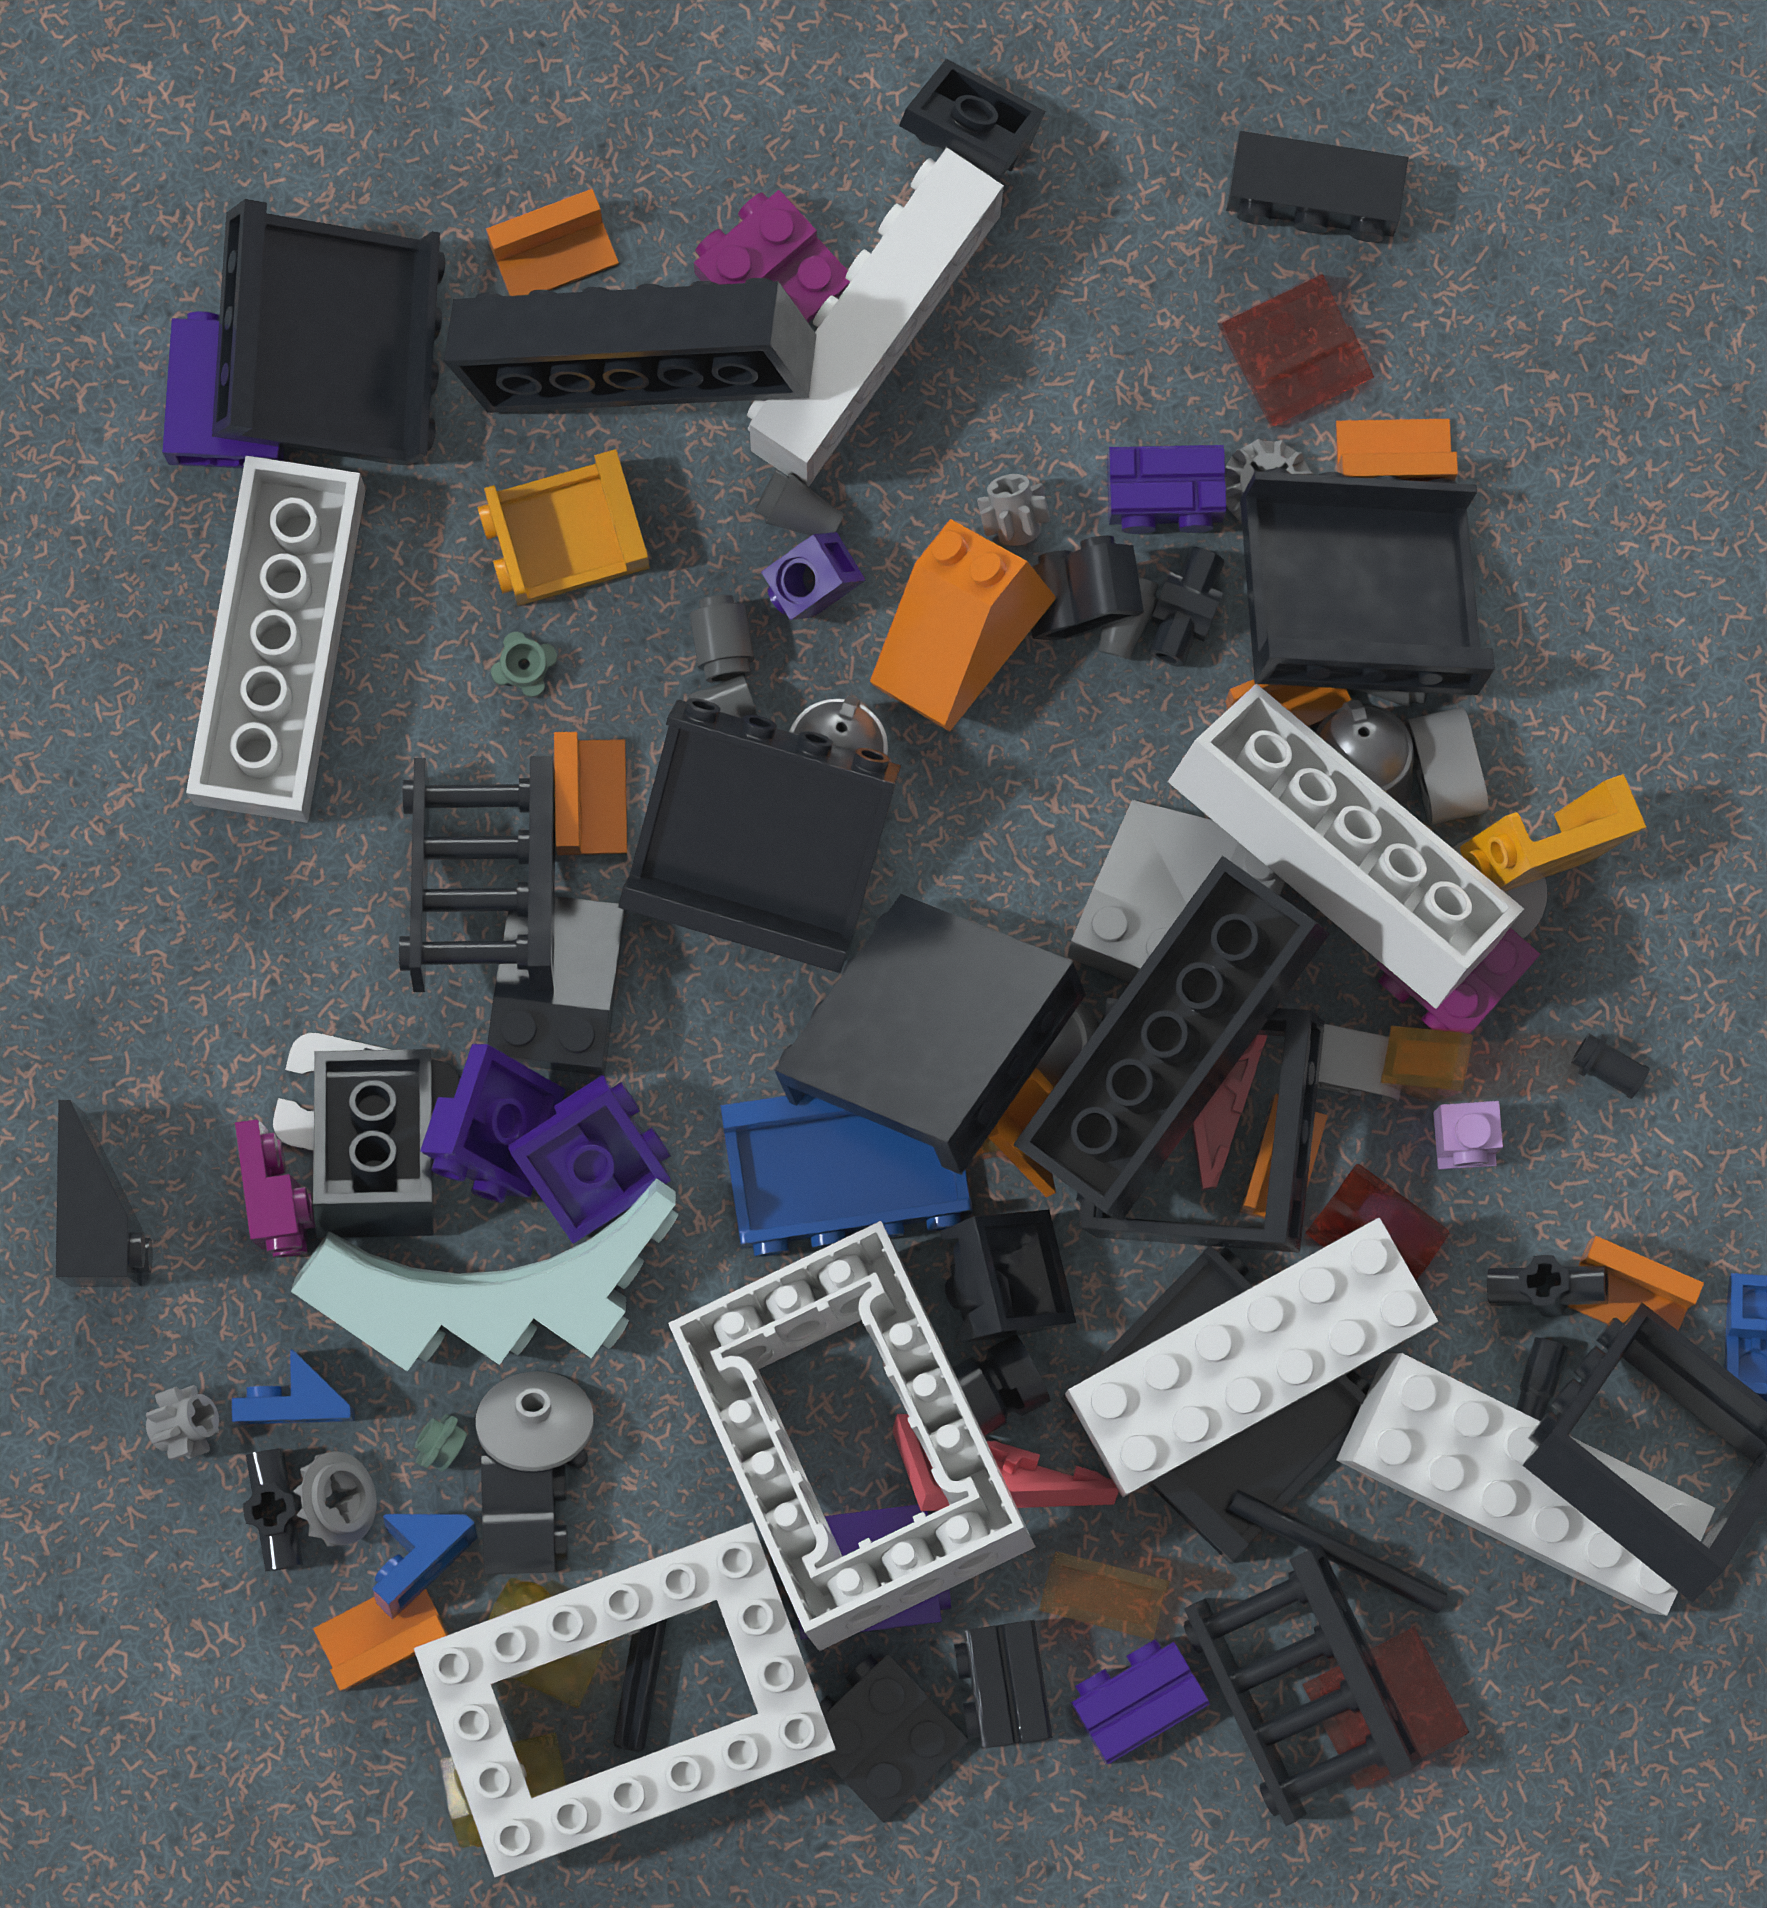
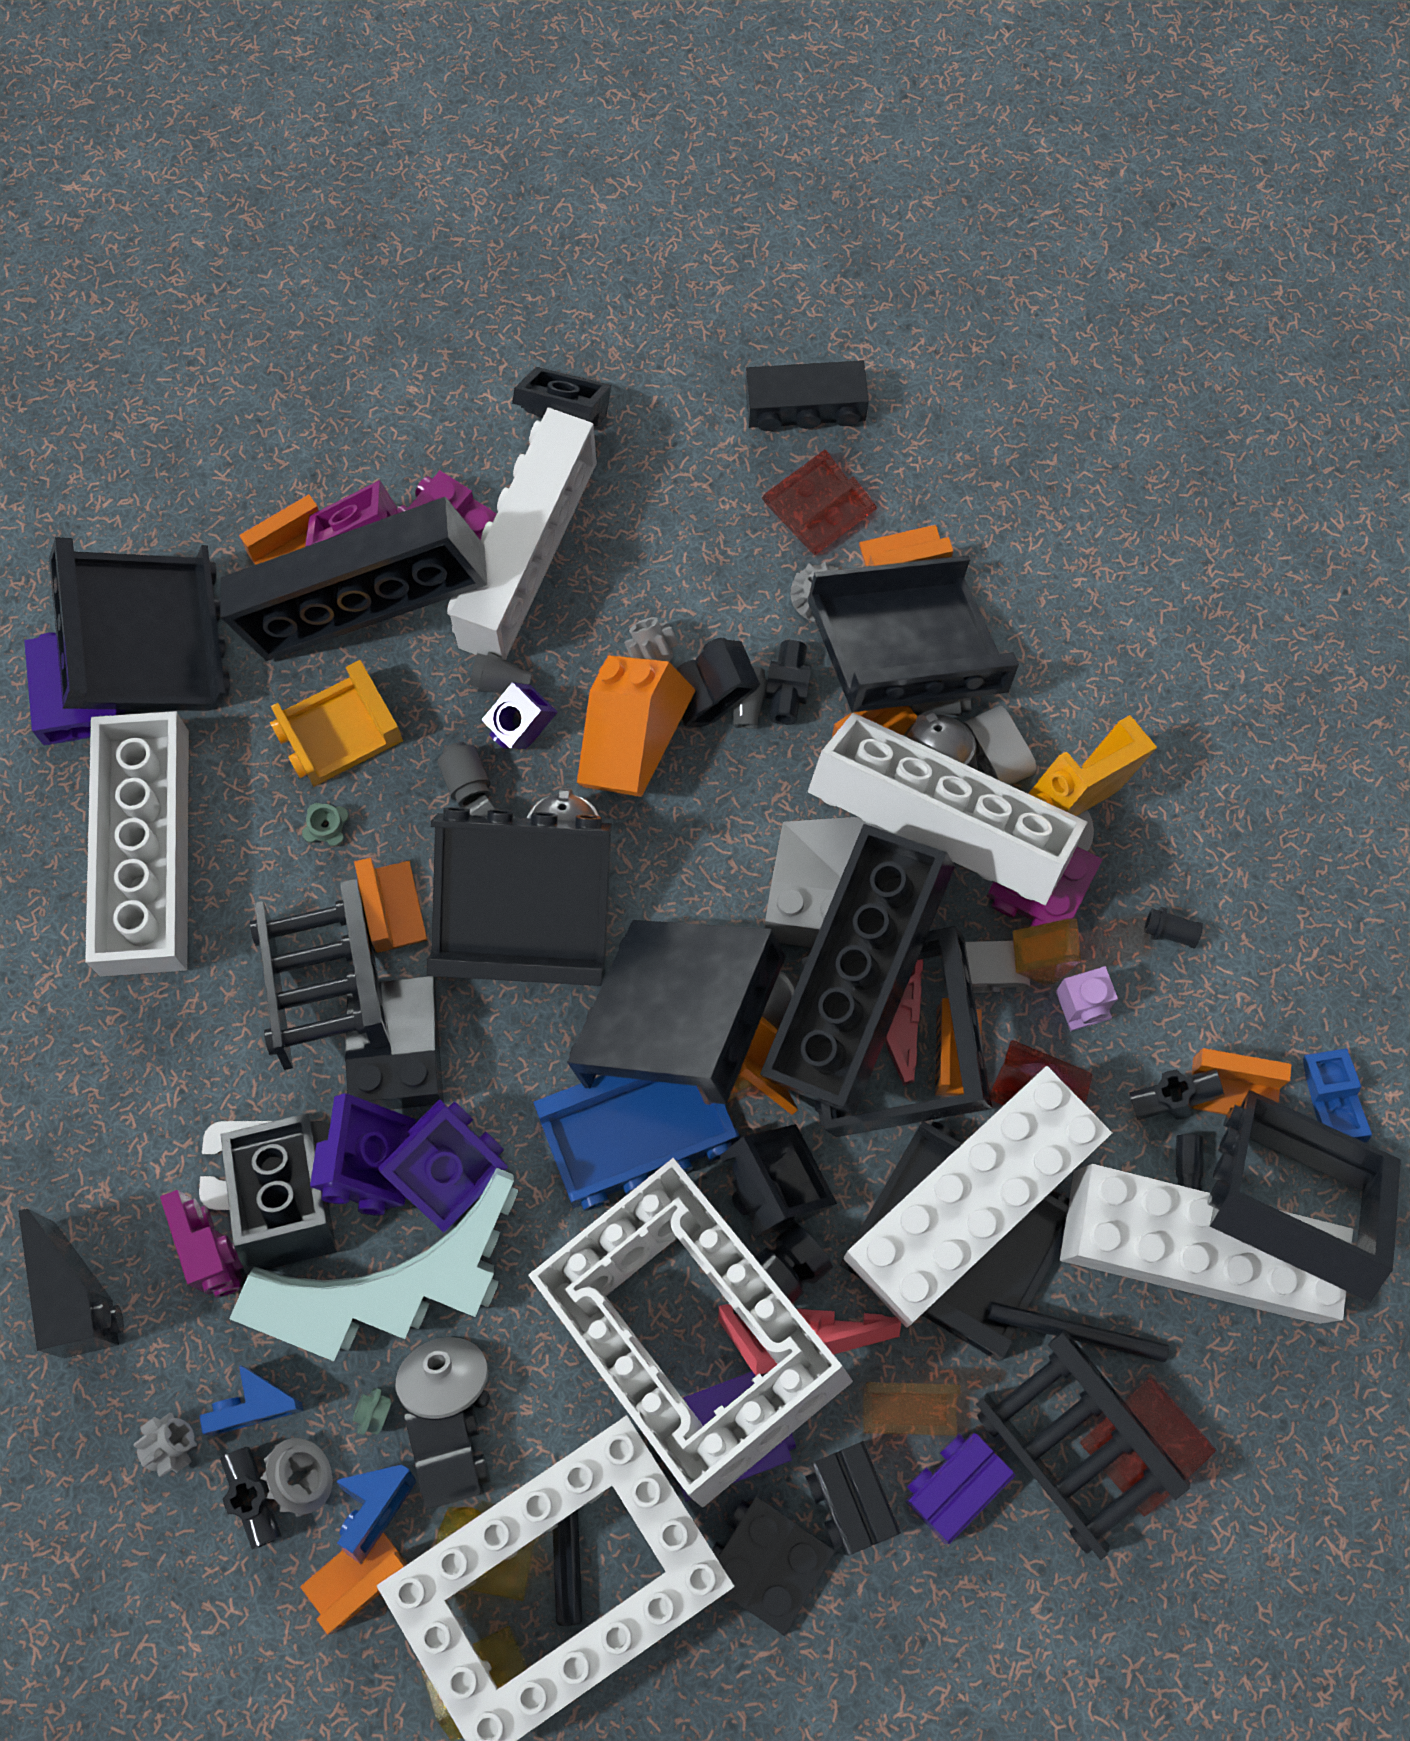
camera: 10 degrees left, 10 degrees down
(643, 246) = (351, 513): none -> magenta plate
(1166, 487) = (754, 605): dark purple brick -> none

